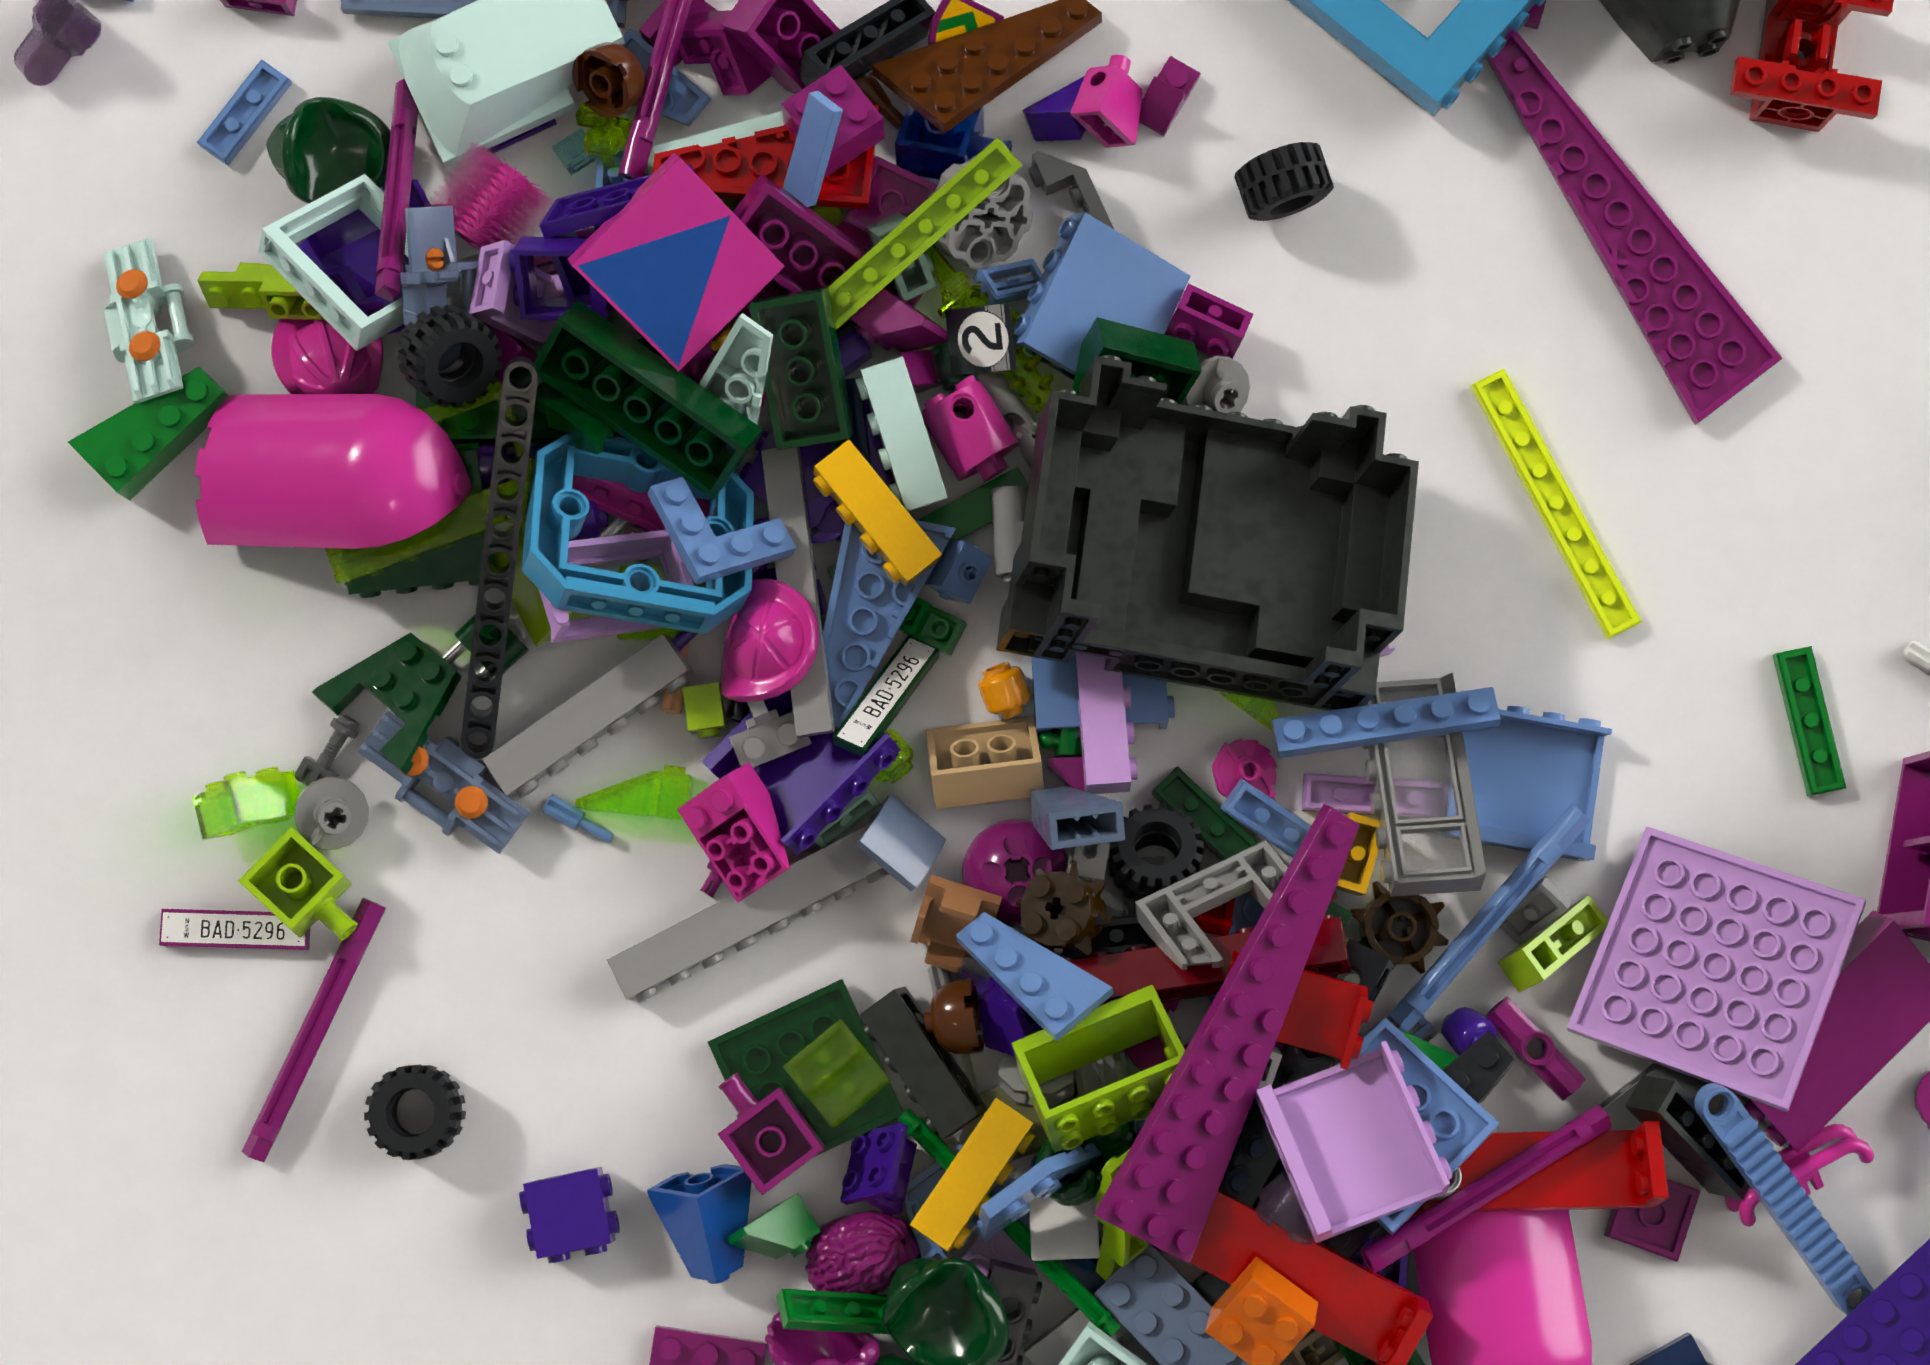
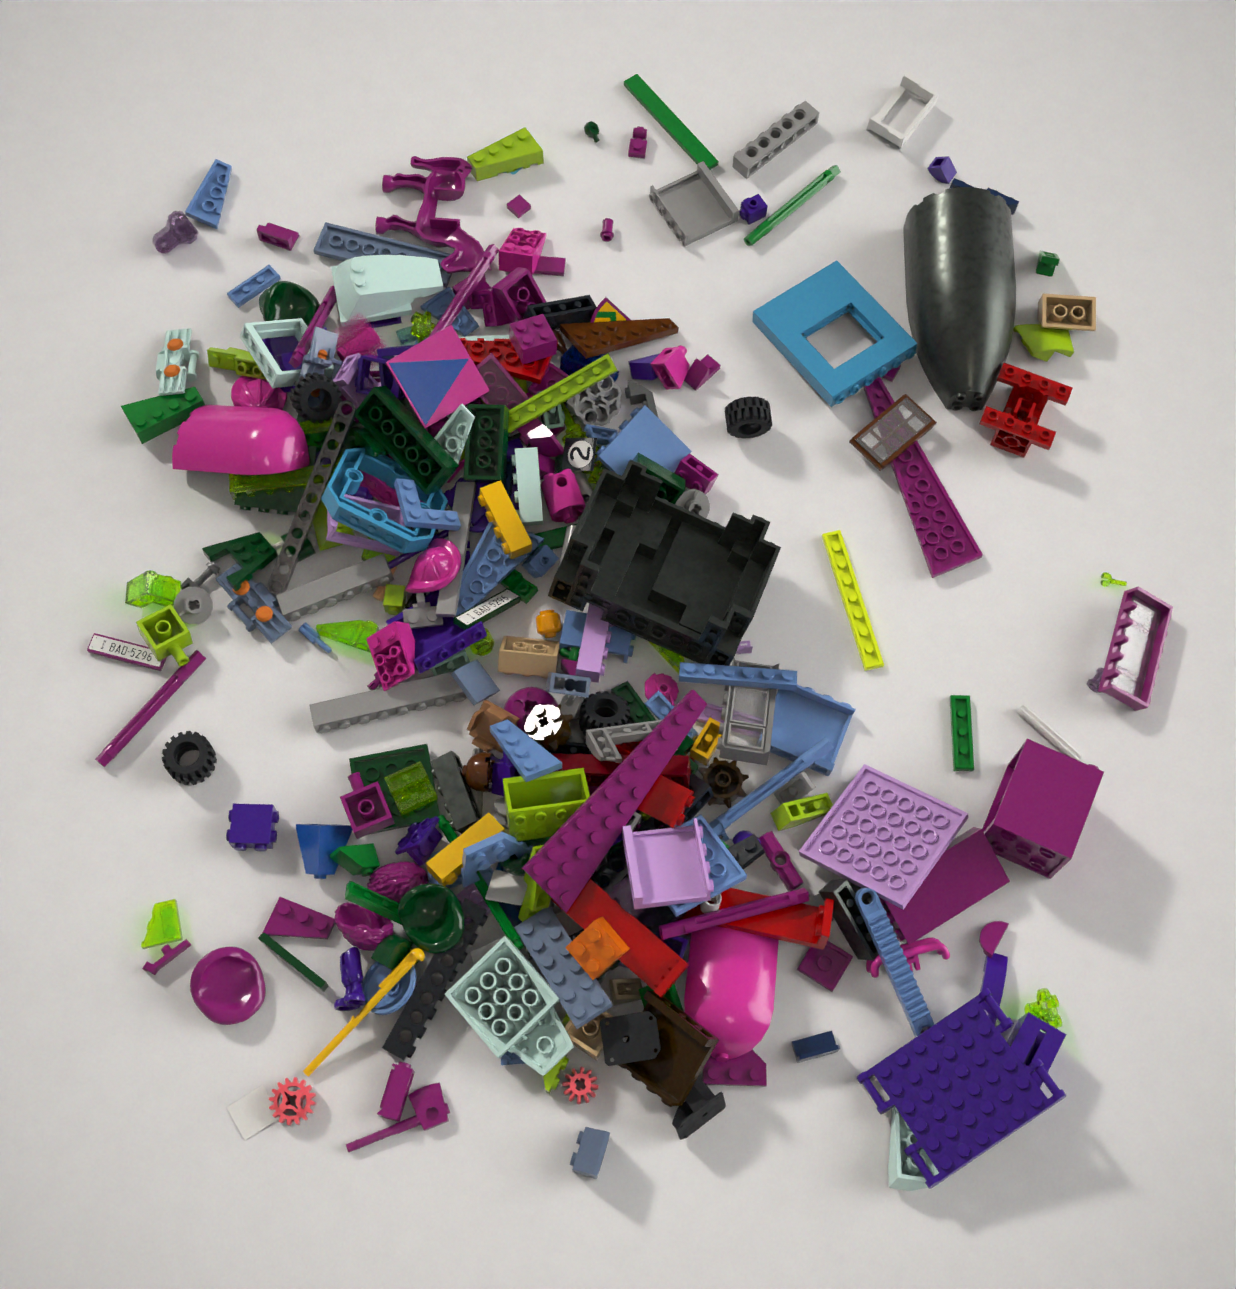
camera: 10 degrees right, 15 degrees down
(609, 78) = (431, 301): reddish brown cylinder -> none
(812, 148) = (518, 344): medium blue tile -> none
(1564, 143) = (892, 432): none -> clear piece

